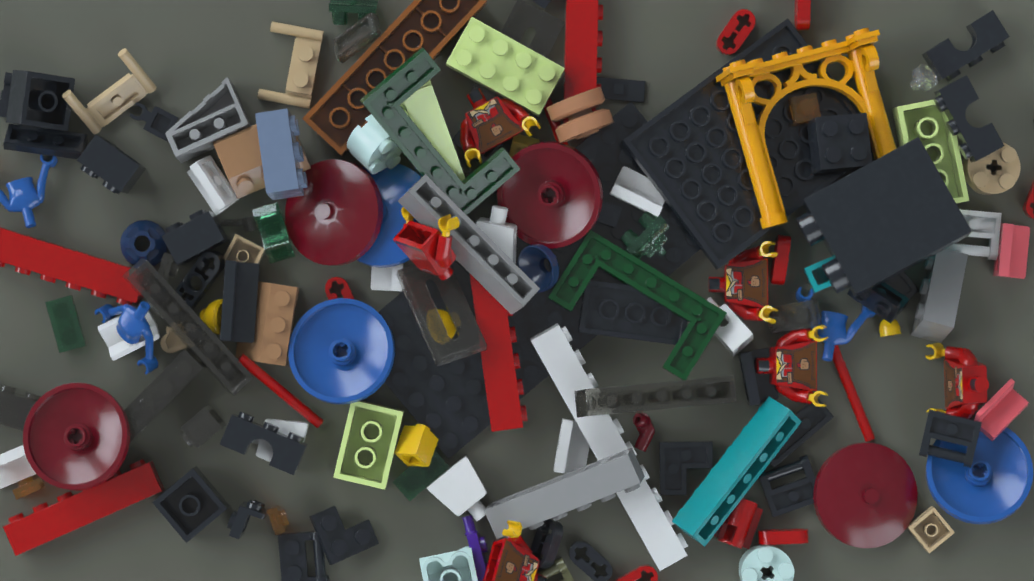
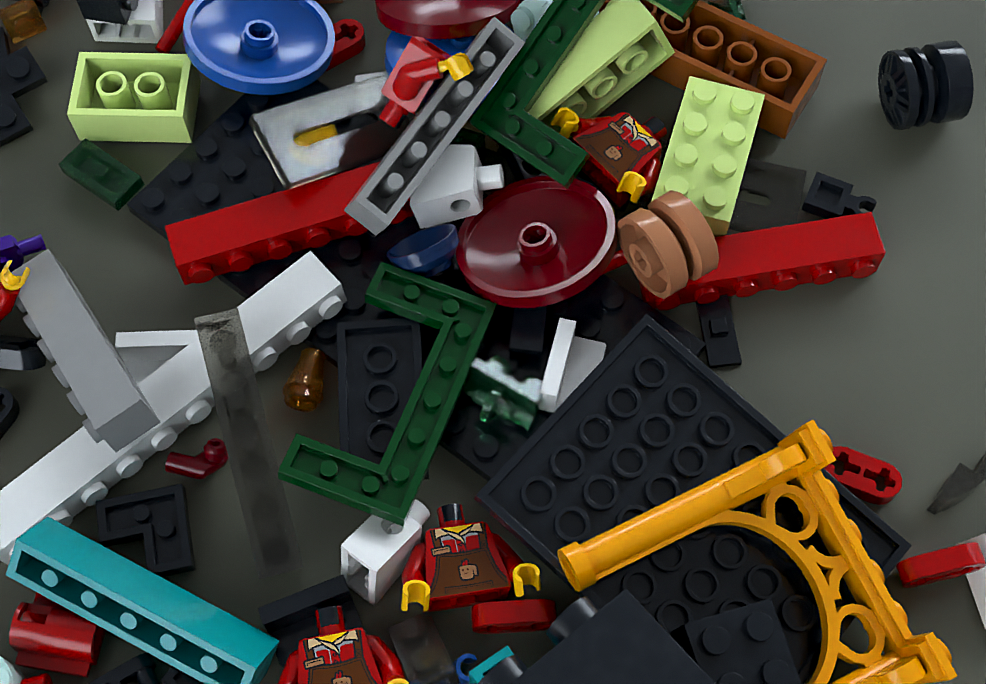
camera: 80 degrees right, 25 degrees down
(416, 445) = (139, 152): yellow brick -> none
(460, 489) = (84, 223): white torso -> none
(604, 357) = (305, 384): none -> clear orange cone
(804, 108) = (781, 588): clear orange plate -> none

